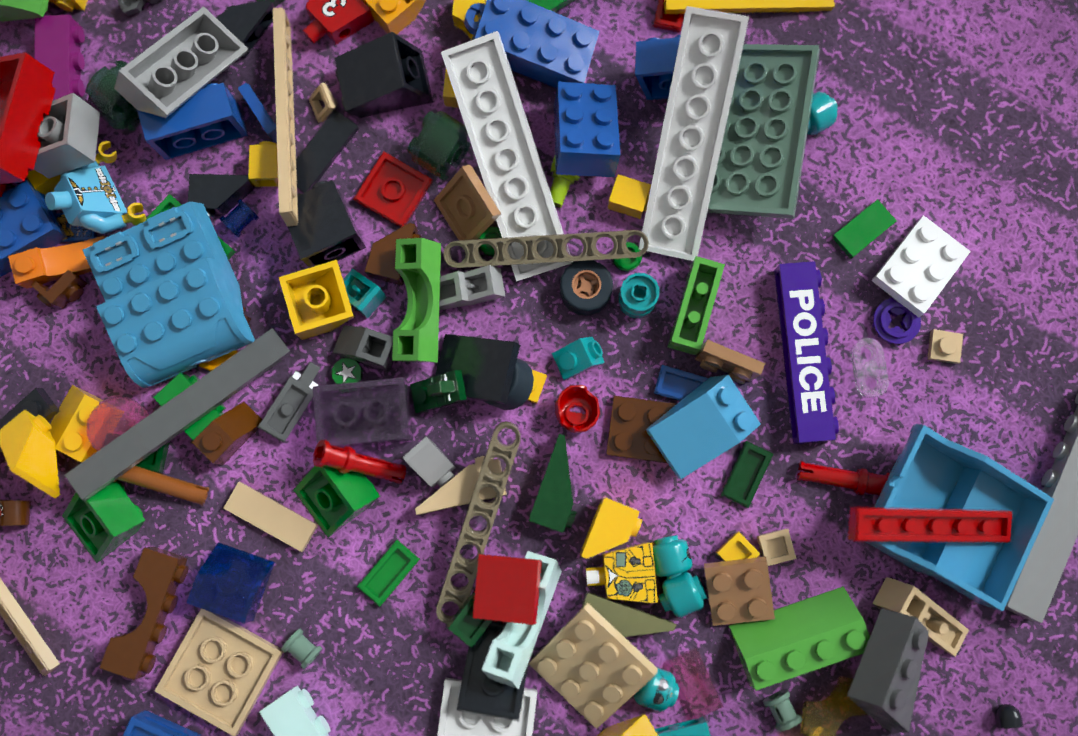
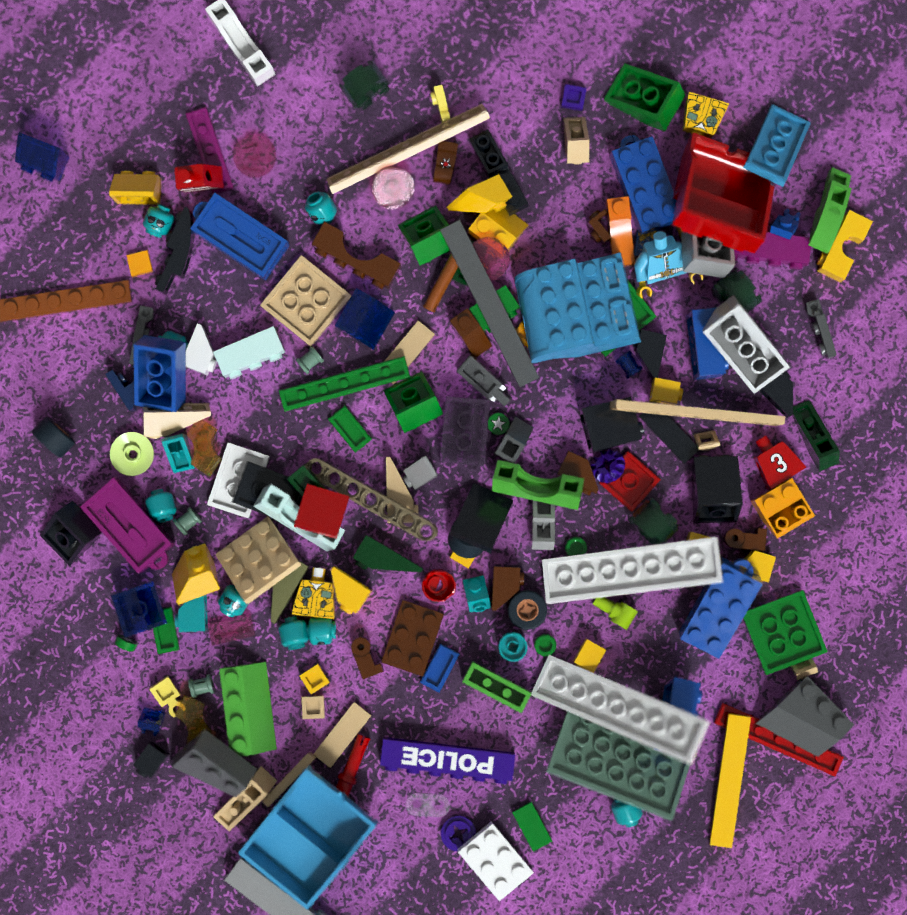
camera: 95 degrees right, 5 degrees up
(24, 44) = (785, 225): none -> blue plate
(40, 580) = (392, 187): none -> clear pink tile
(82, 677) = (320, 207): none -> teal head
(259, 111) = (706, 393): blue tile -> none
(316, 299) = (554, 413): yellow slope -> none
(327, 593) = (344, 383): none -> green tile
(347, 460) = (432, 415): red pin -> none
(363, 293) = (556, 443): teal slope -> none
(375, 206) = (616, 467): none -> dark purple gear
(438, 391) = (470, 487): dark green hinge -> none
(441, 20) = (737, 539): none -> reddish brown leg
(467, 205) = (603, 534): medium nougat plate -> none
(531, 254) = (561, 596): dark tan beam -> none
(559, 322) = (505, 584): none -> reddish brown slope
(586, 129) = (644, 633): blue brick -> none
(697, 490) = (361, 651): none -> reddish brown leg
(703, 425) = (408, 672): dark azure slope -> none
(739, 366) = (444, 708): medium nougat plate -> none
(739, 591) = (288, 673): medium nougat plate -> none
(746, 474) = (368, 698): dark green tile -> none
(803, 500) = (342, 734): none -> tan tile
(881, 561) = (289, 778): none -> tan tile
(929, 525) = (306, 815): red tile -> none
(945, 346) = (432, 865): tan plate -> none
(1008, 717) = (165, 843): black hinge -> none

